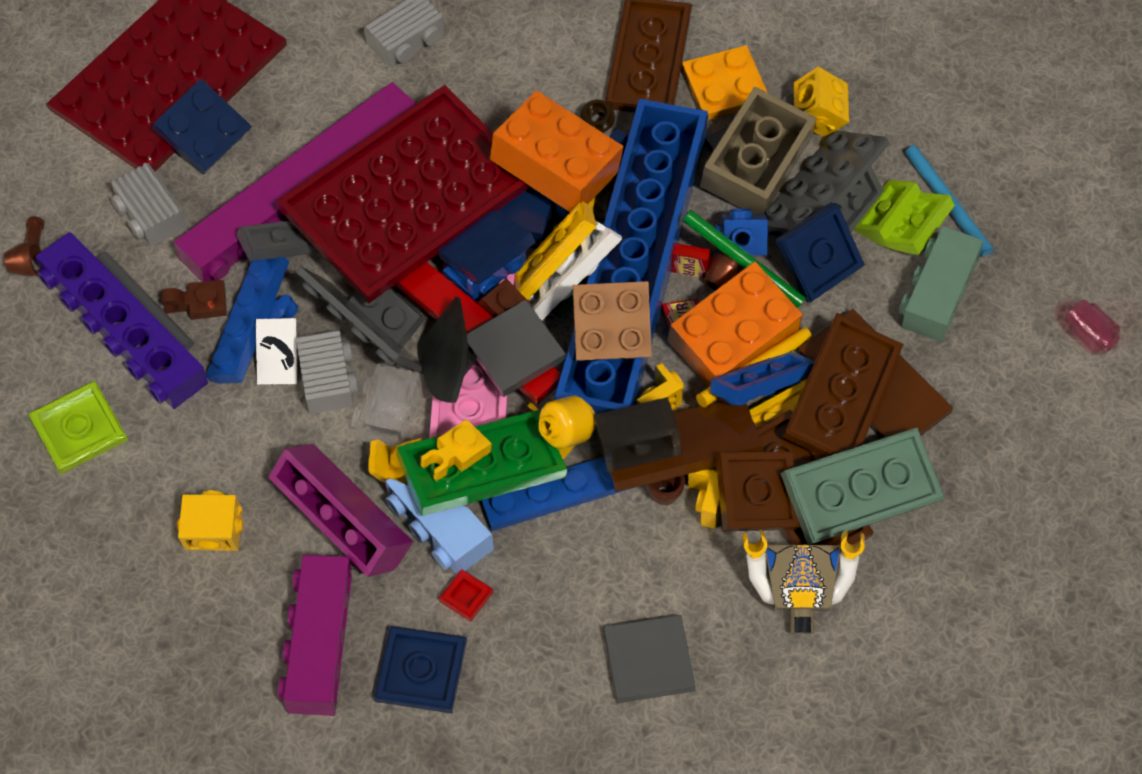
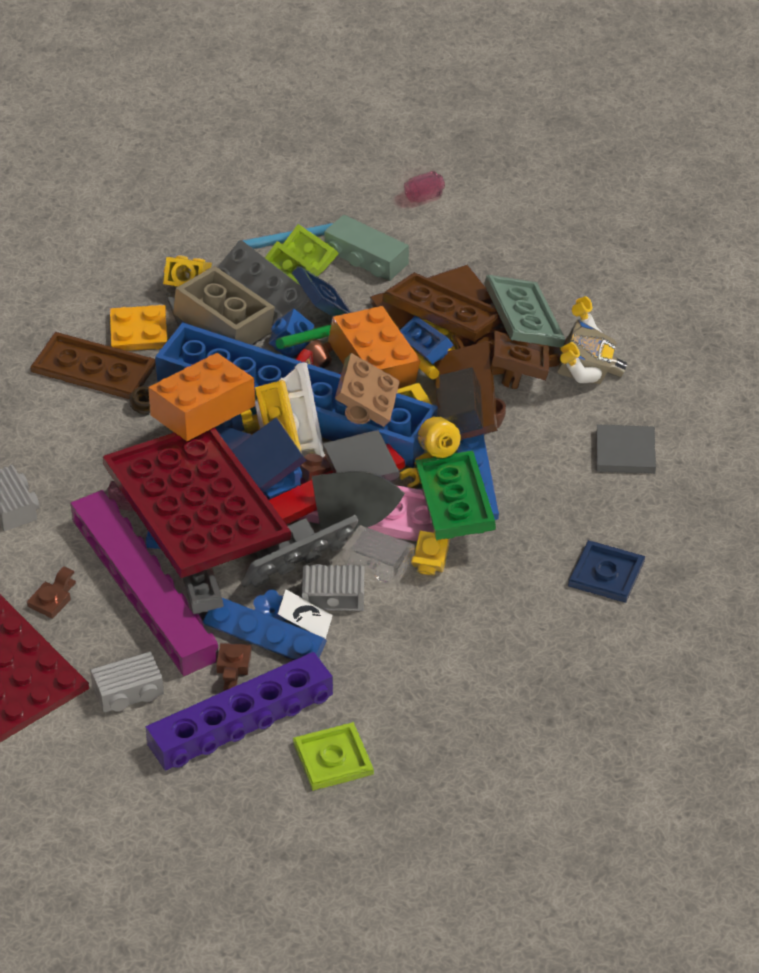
camera: 80 degrees left, 15 degrees down
(19, 257) = (149, 771): copper bar -> none
(201, 126) = (59, 636): dark blue plate -> none
(210, 521) = (454, 670): yellow head -> none
(271, 107) = (51, 598): none -> copper plate
(317, 635) = (569, 618): magenta brick -> none
(340, 509) = (467, 588): magenta brick -> none
(454, 534) = (511, 533): light blue slope -> none
(457, 447) = (448, 494): yellow plate -> none
(466, 595) = (551, 538): red tile -> none
(708, 498) = (511, 390): yellow bracket -> none

